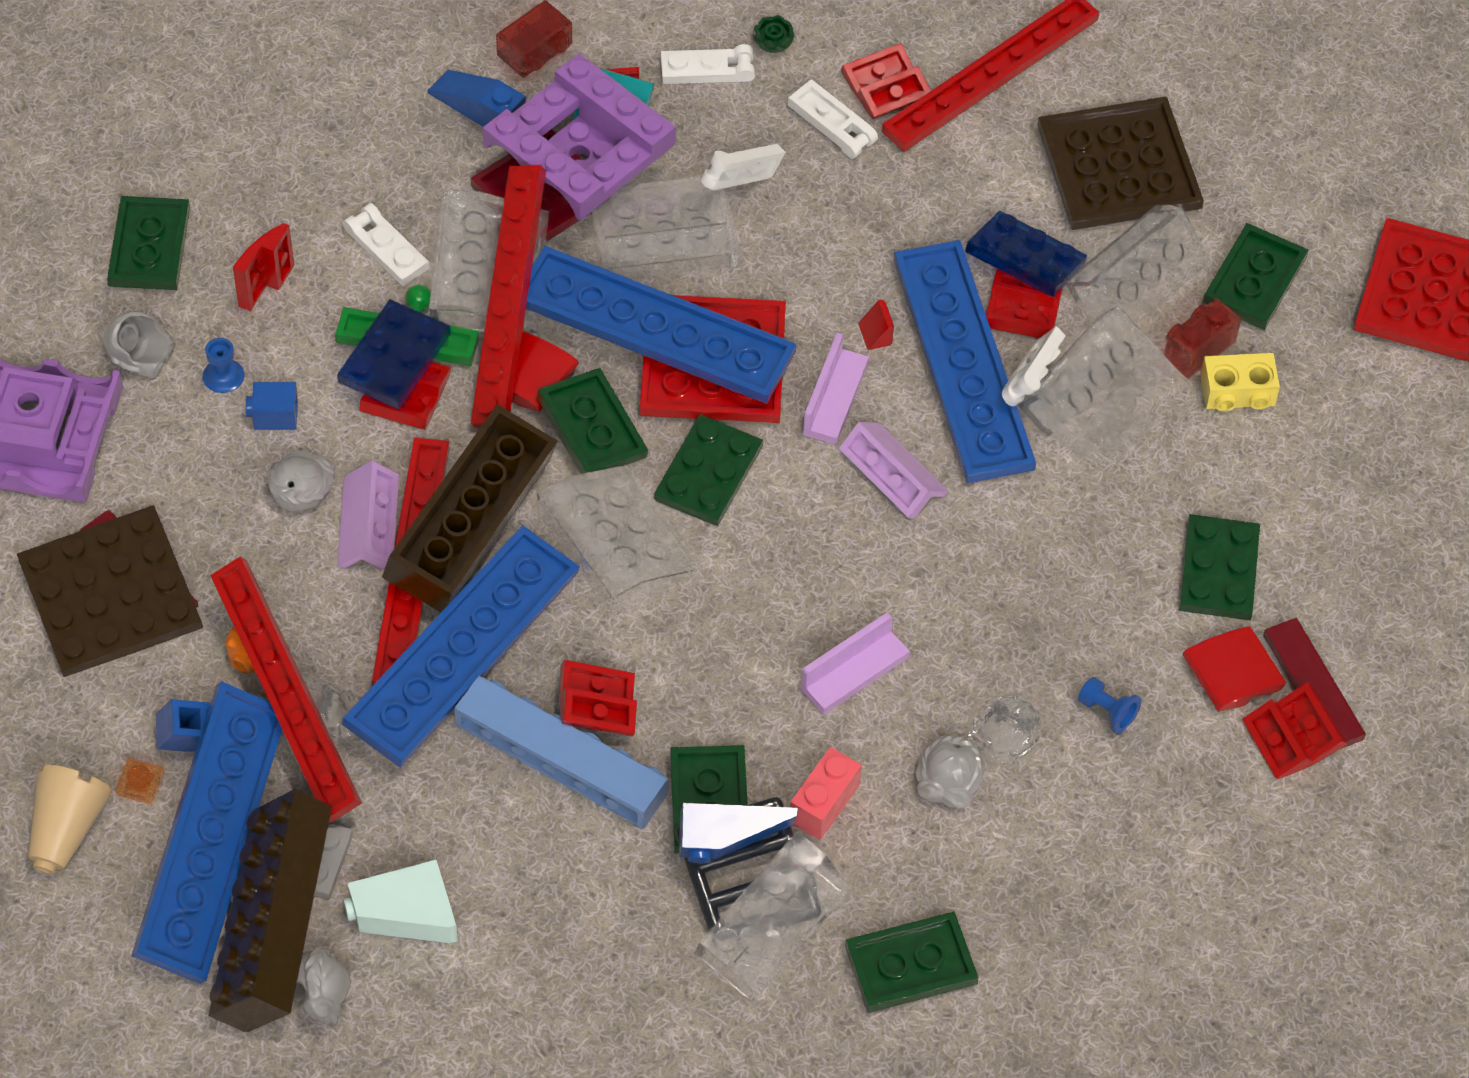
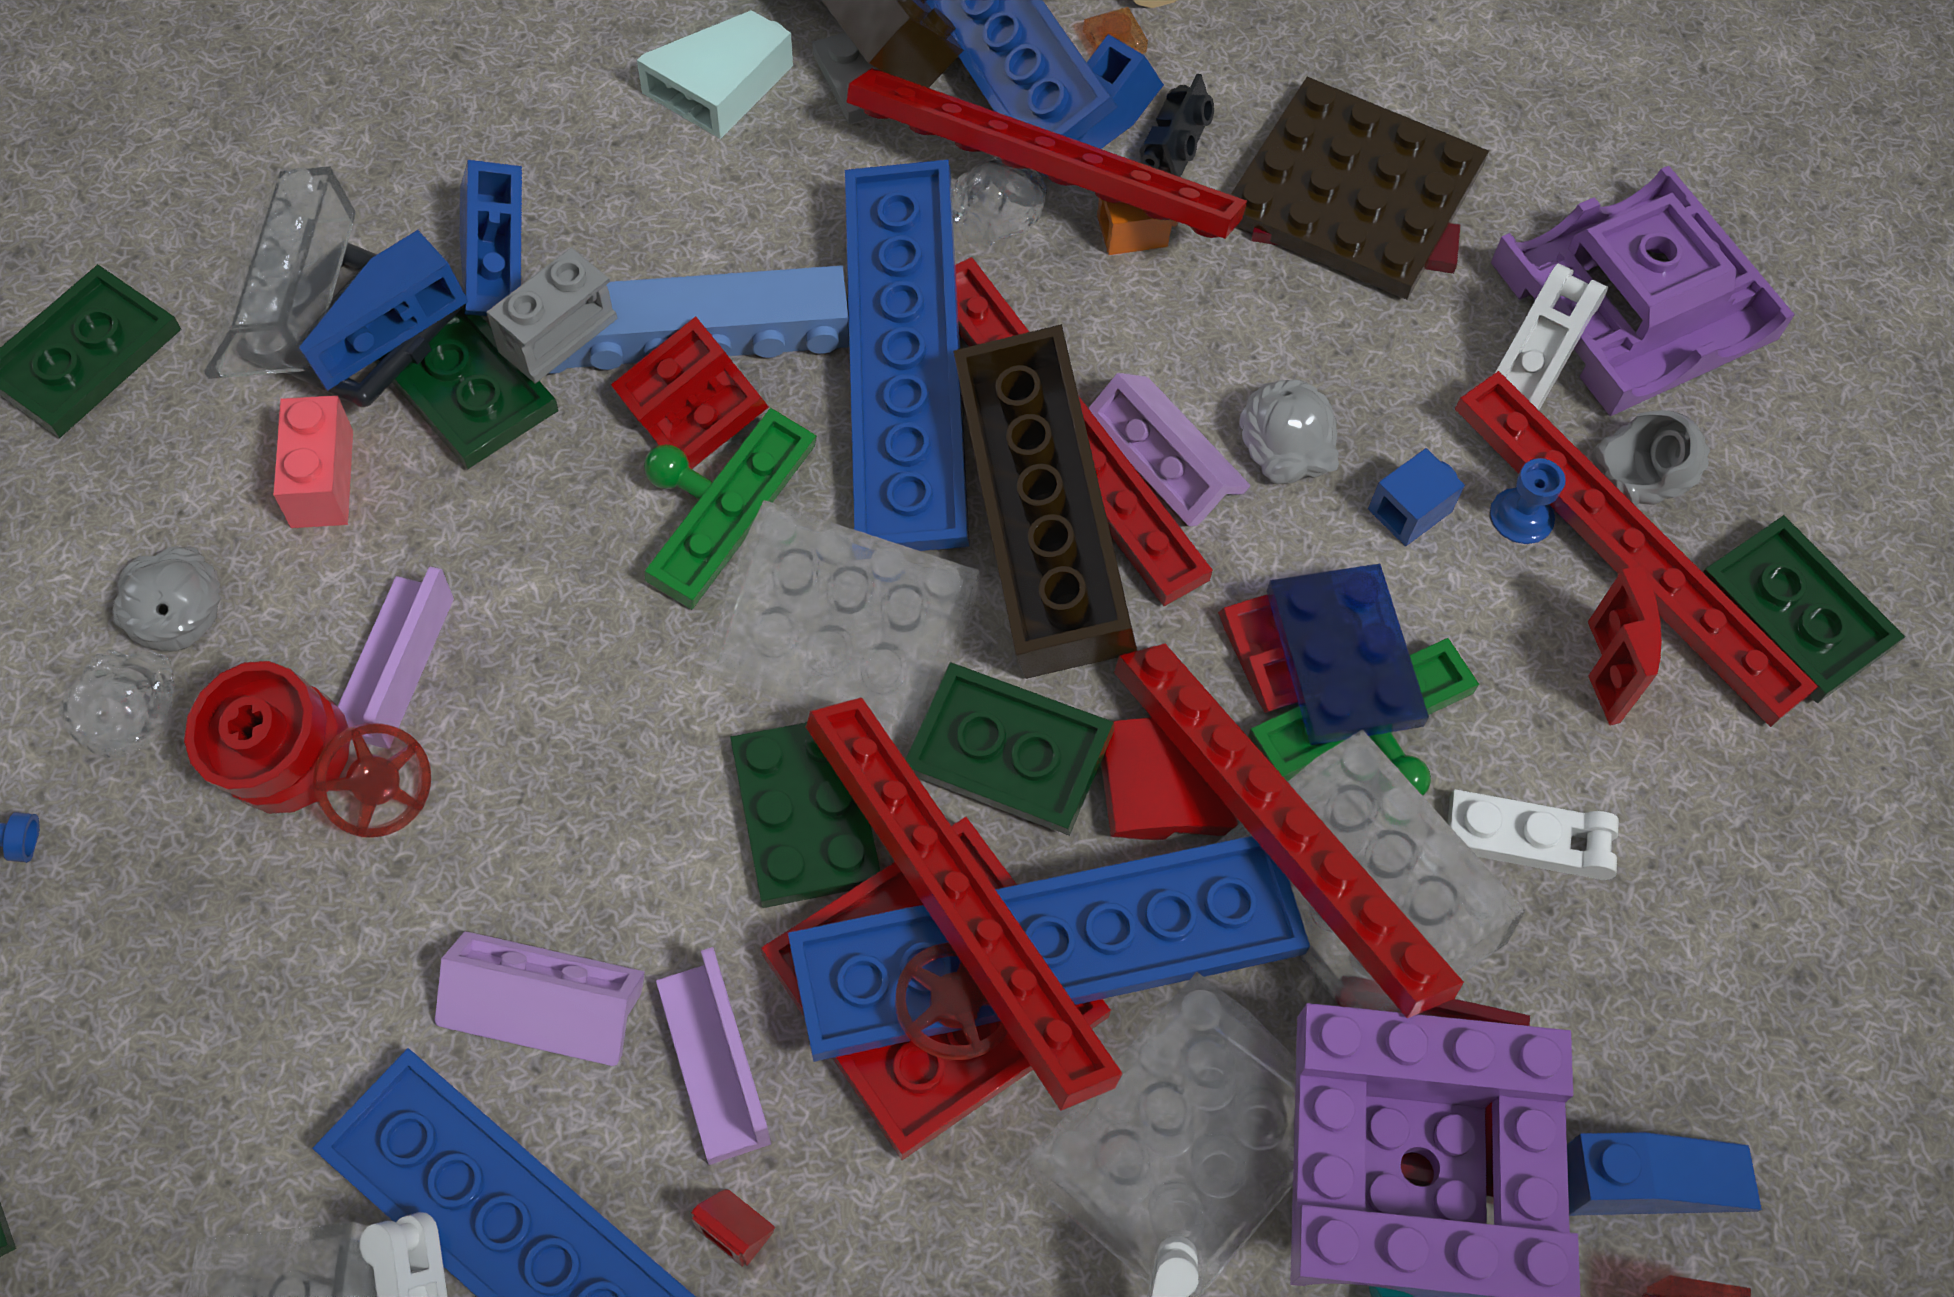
camera: 140 degrees right, 5 degrees up
(129, 419) = (1549, 335): none -> white plate
(184, 683) = (1179, 127): none -> black hinge
(195, 319) = (1629, 539): none -> red plate
(626, 633) = (725, 506): none -> green plate
(631, 868) = (490, 233): none -> blue slope
(644, 757) = (552, 315): none -> light grey hinge
(682, 353) = (965, 906): none -> red plate
(718, 318) = (953, 1003): none -> clear red wheel
(906, 600) = (372, 780): none -> clear red wheel
(943, 645) = (262, 735): none -> red wheel

